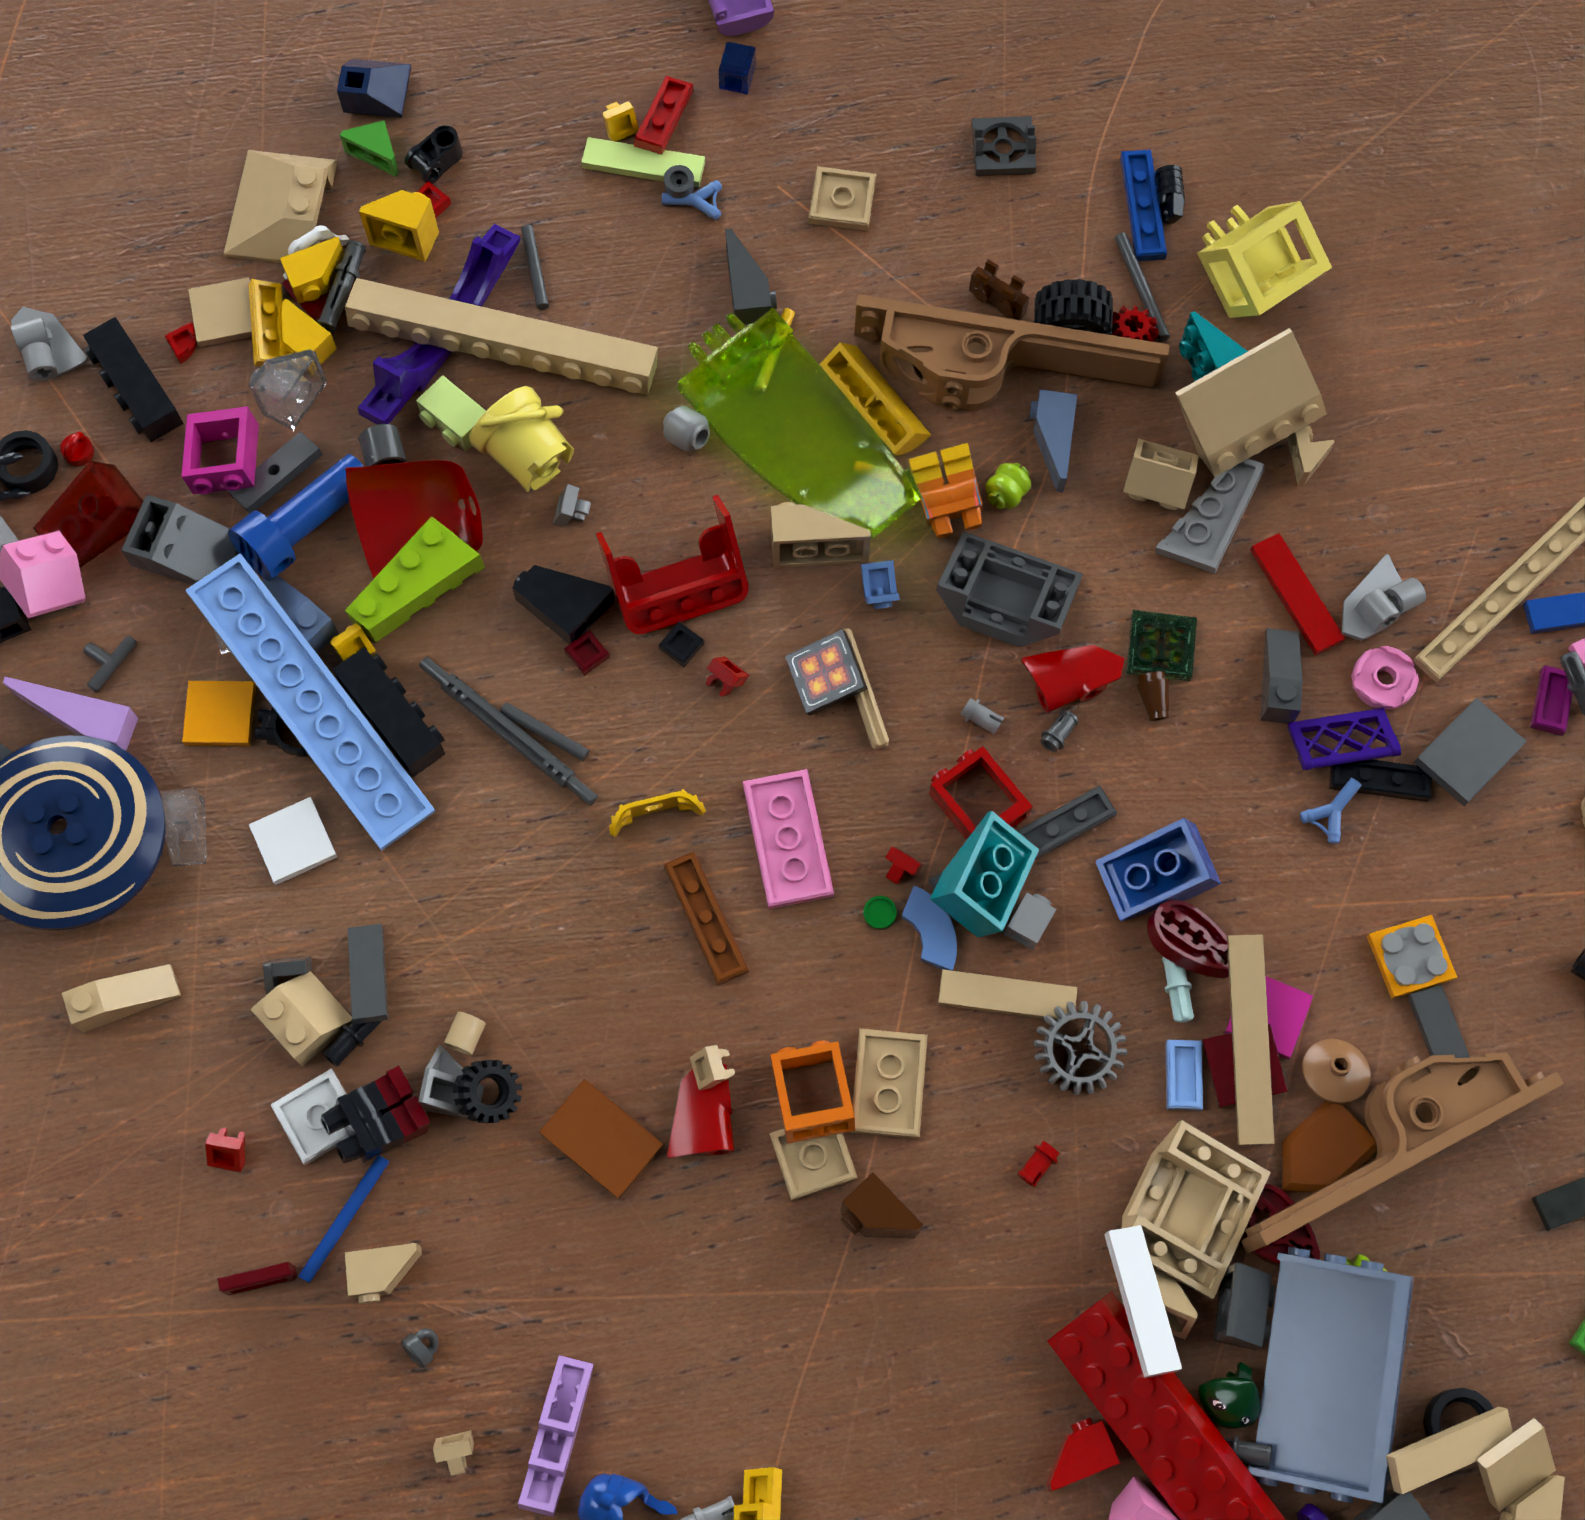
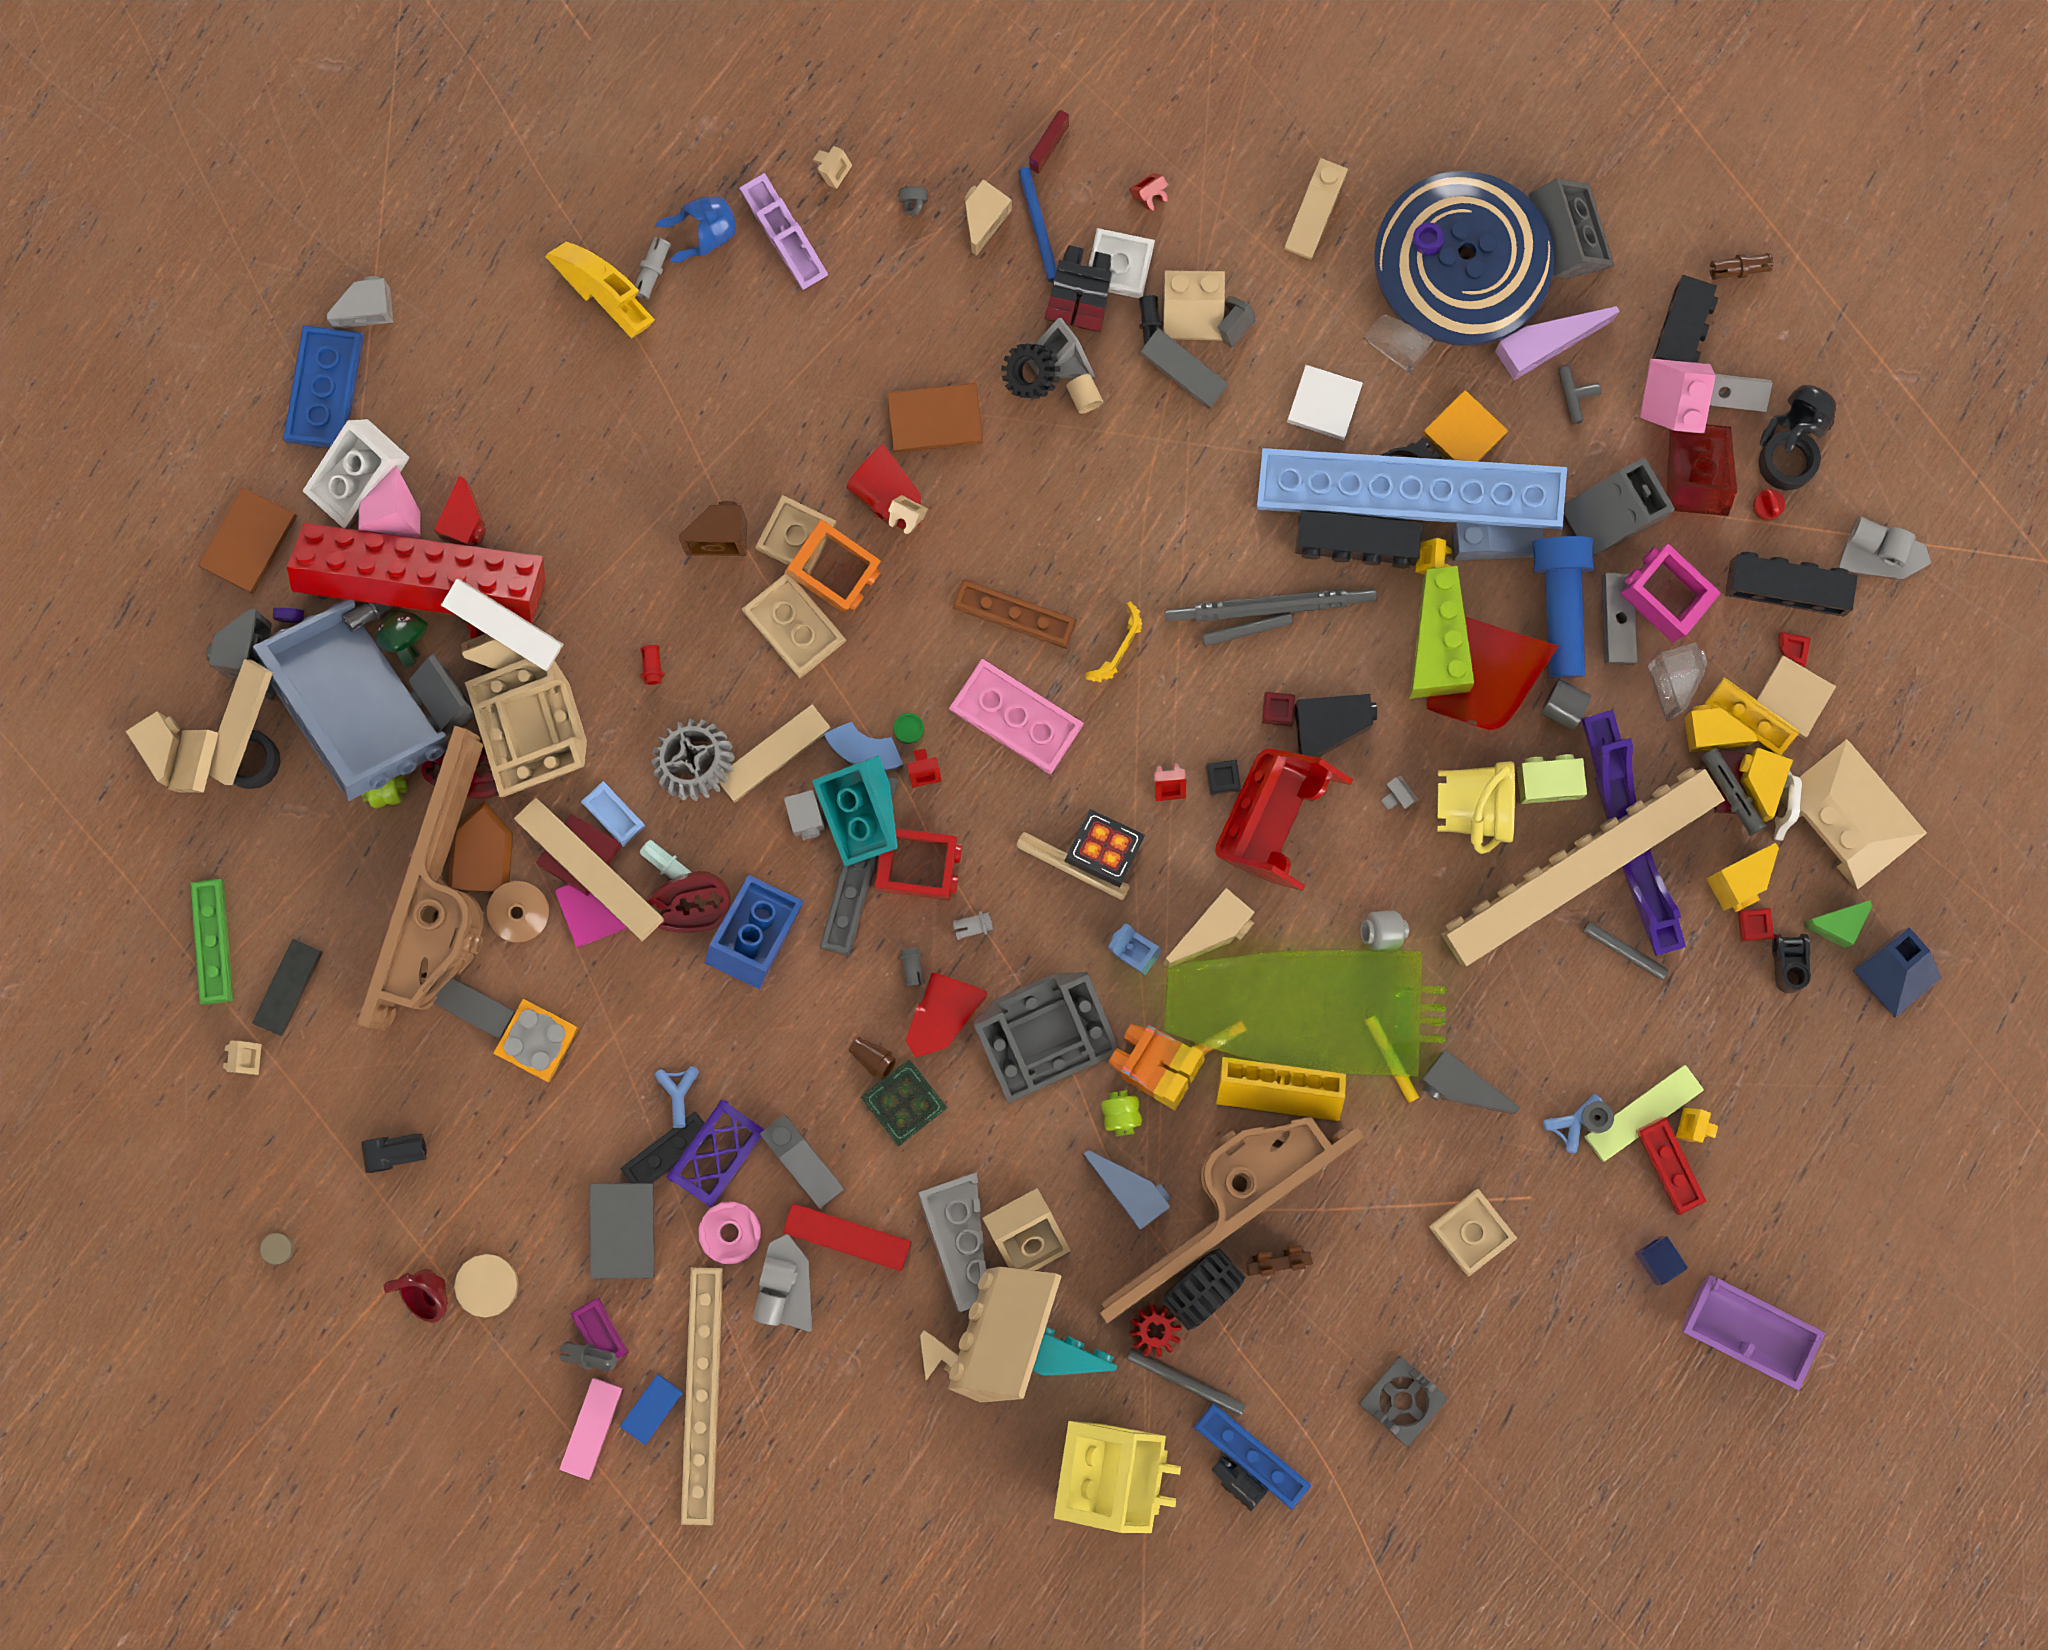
camera: 135 degrees right, 10 degrees up
(73, 862) = (1428, 238): none -> dark purple tile

